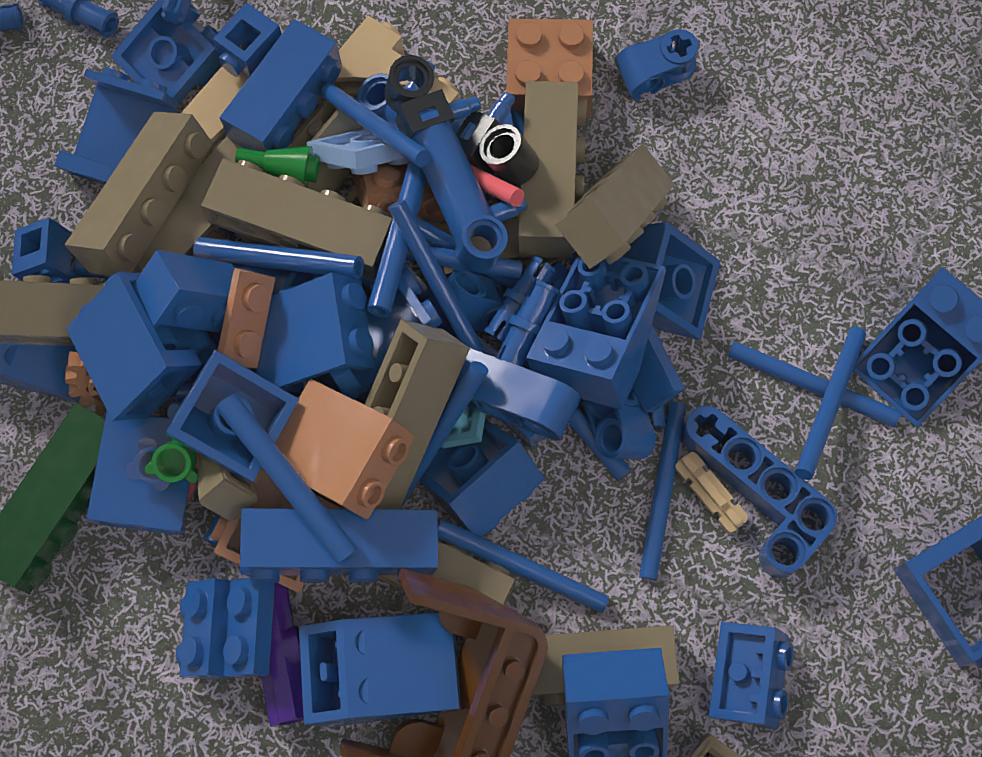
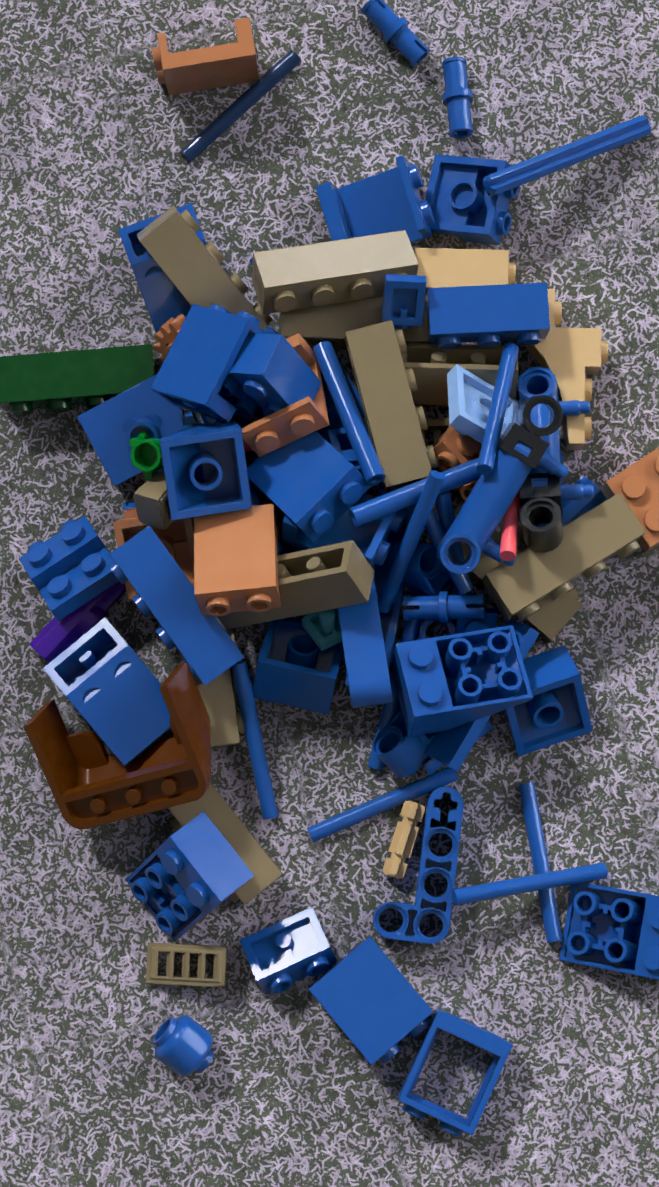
camera: 55 degrees right, 10 degrees up
(42, 251) = (246, 229): blue brick -> none
(211, 141) = (404, 300): none -> blue bracket
(246, 40) = (517, 249): blue brick -> none
(286, 477) = (188, 541): blue piece -> none
(294, 162) = (426, 365): green cone -> none
(453, 410) = (329, 618): blue bar -> none
(527, 322) = (423, 626): blue pin -> none
(616, 208) = (562, 629): dark tan brick -> none
(852, 624) = (372, 1001): none -> blue panel

